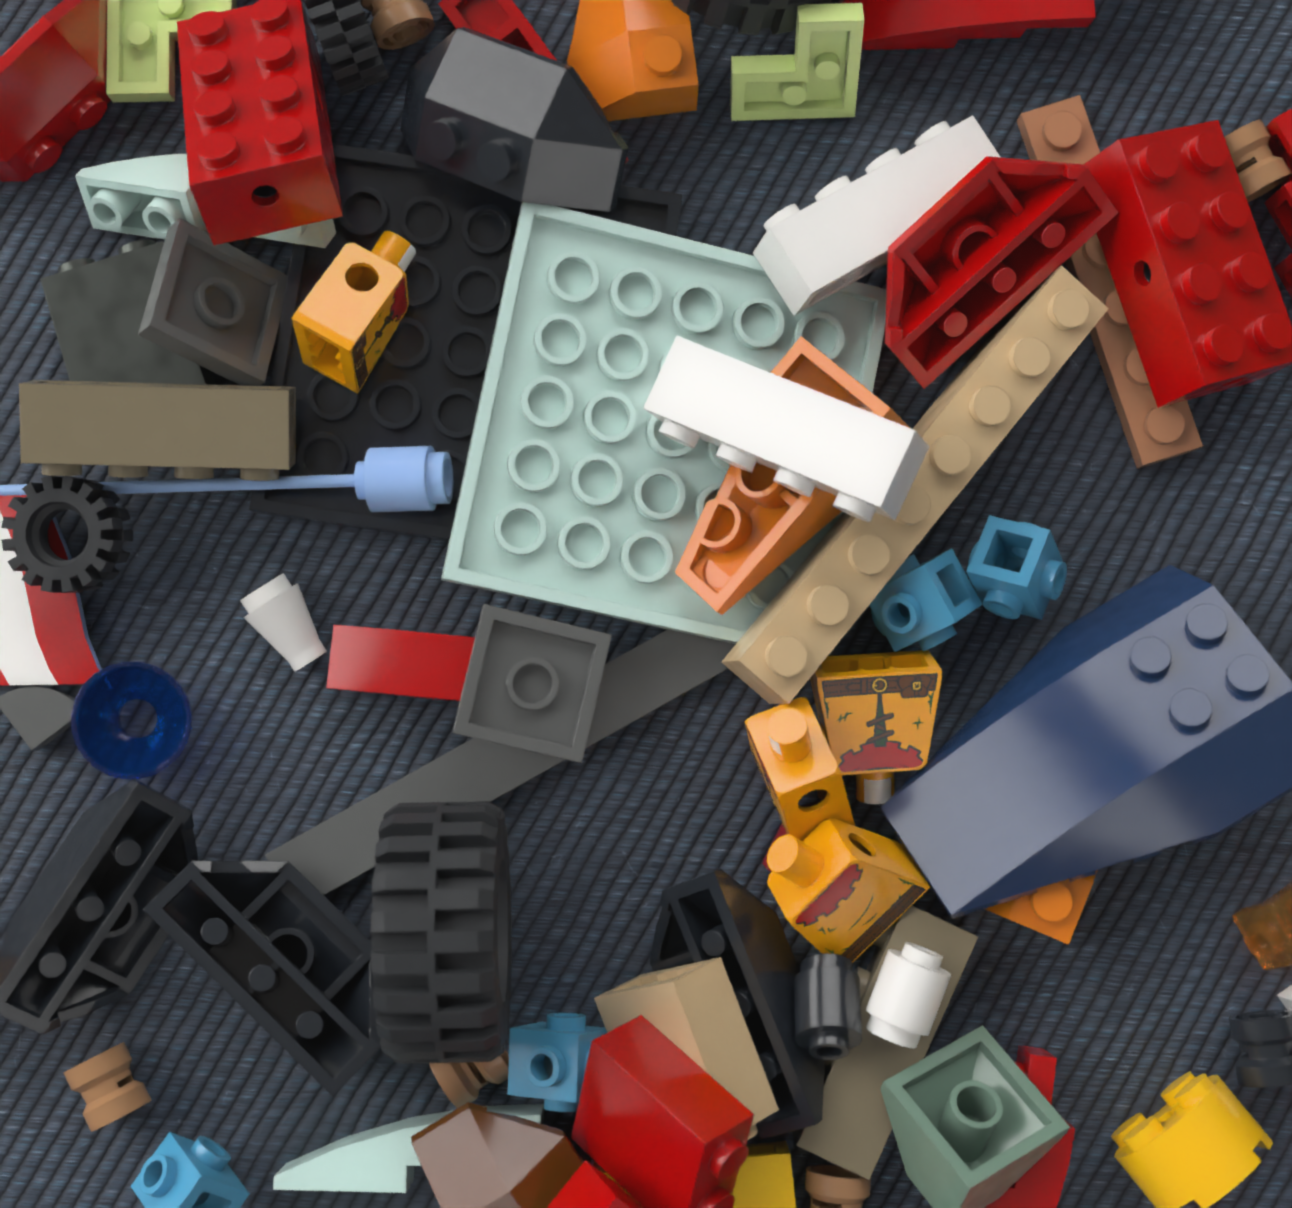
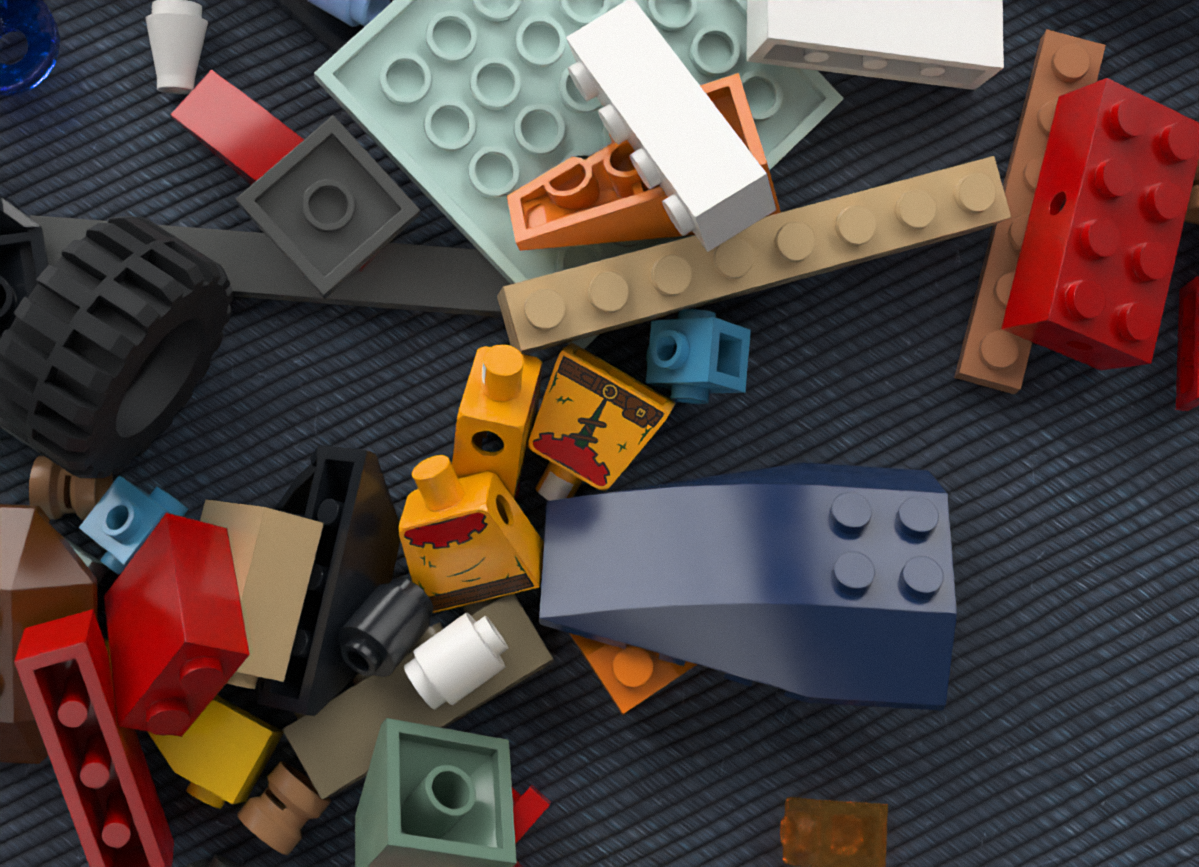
camera: 30 degrees right, 5 degrees down
(983, 255) = (934, 105): red wedge -> none
(1016, 568) = (792, 380): dark azure brick -> none

